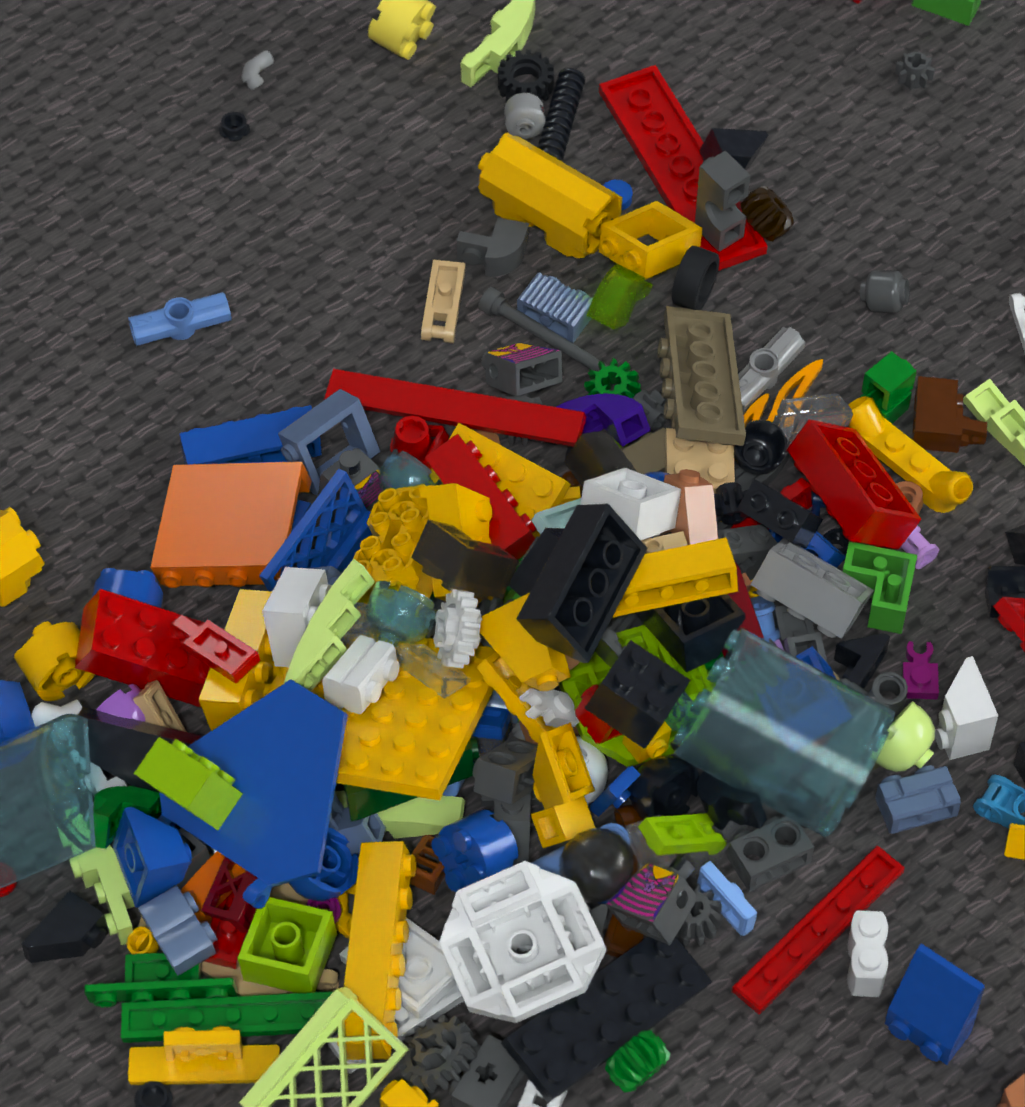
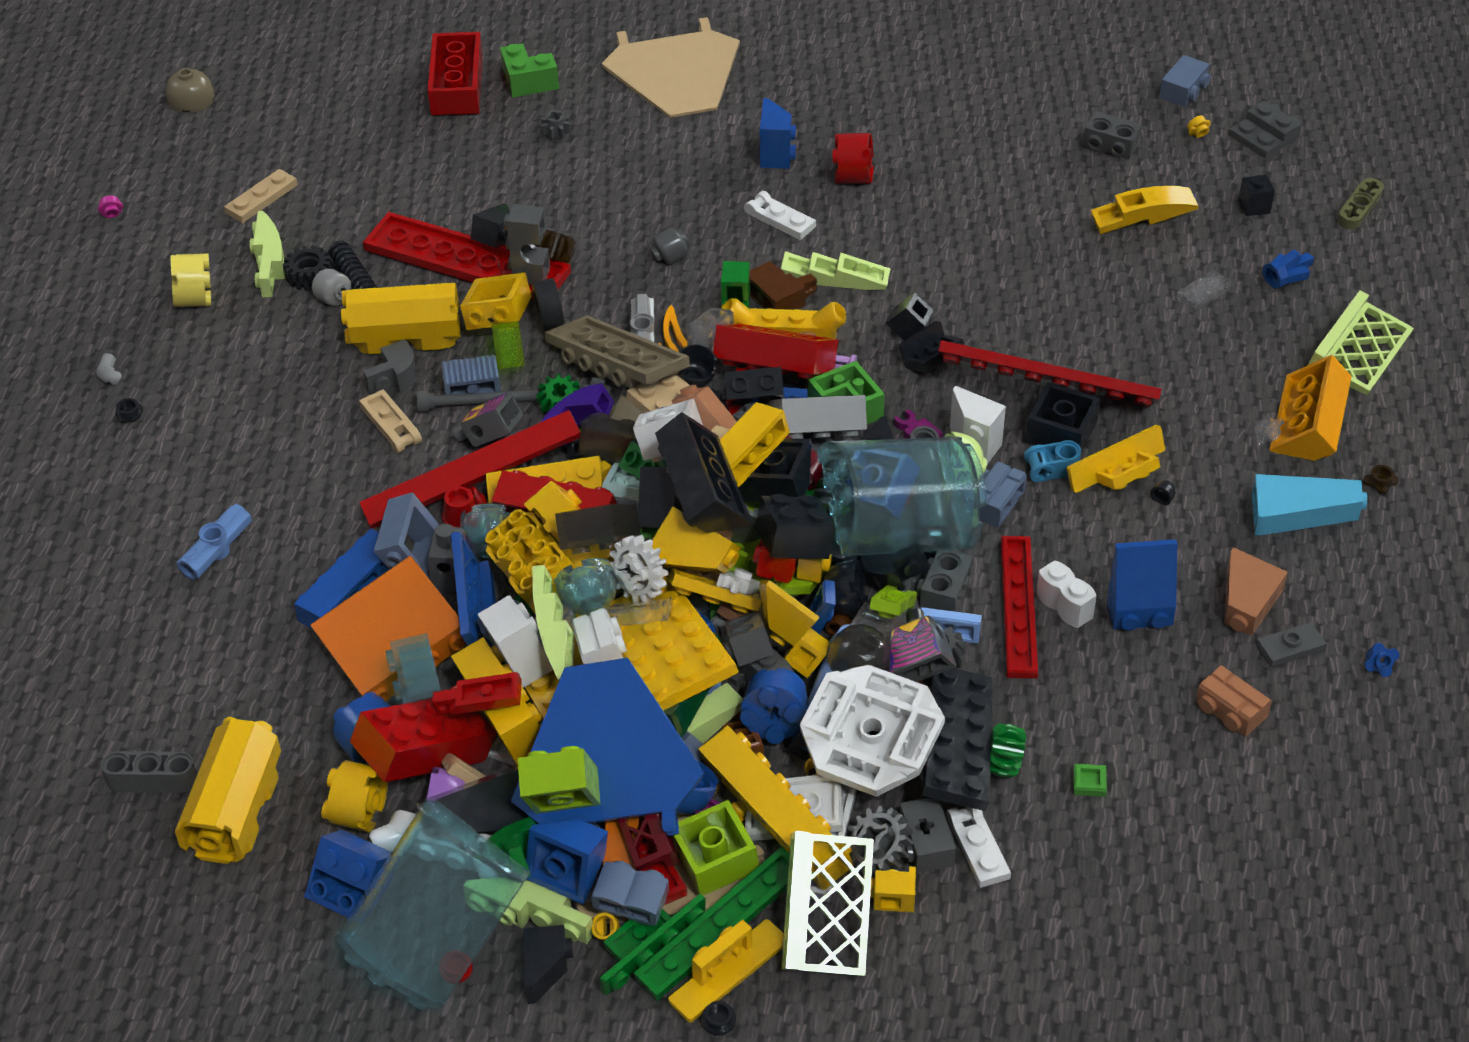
camera: 40 degrees left, 10 degrees down
(193, 577) = (414, 668): none -> clear light blue brick

